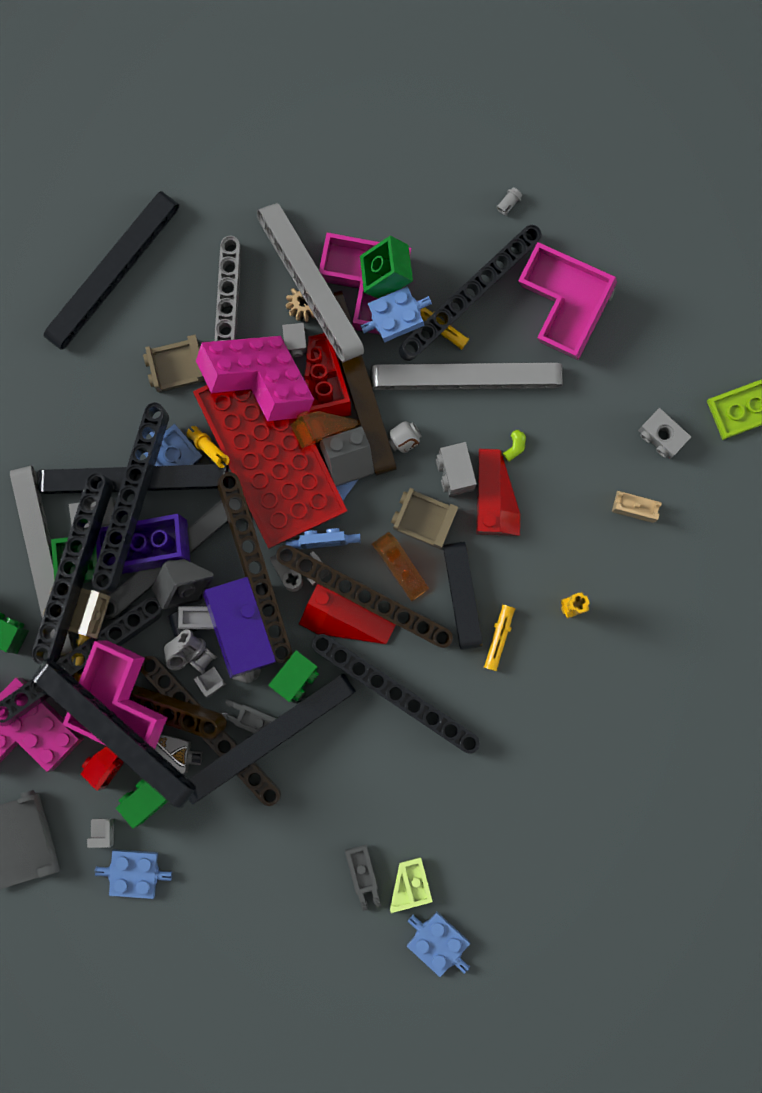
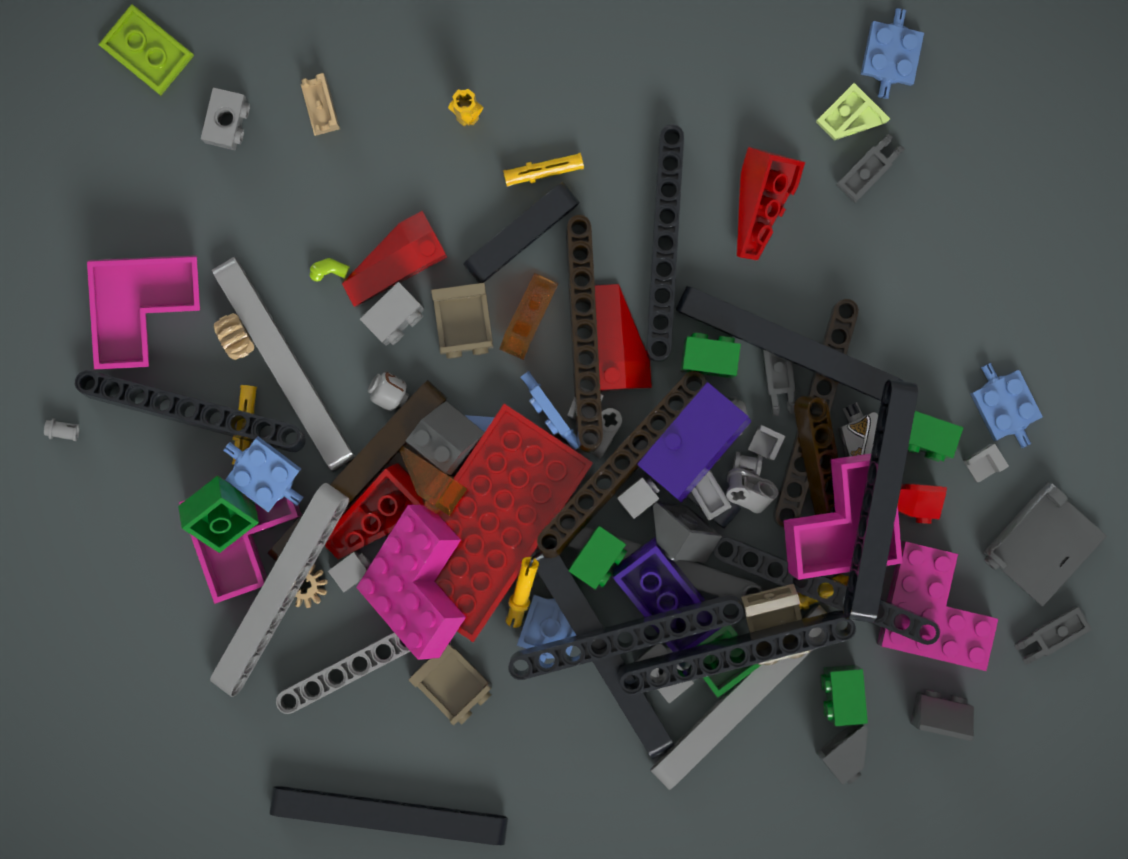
camera: 120 degrees left, 5 degrees up
(200, 512) = (597, 557): none -> green brick
(225, 566) = (638, 497): none -> light grey brick
(393, 789) = (764, 188): none -> red wedge
(505, 351) = (233, 336): none -> tan gear

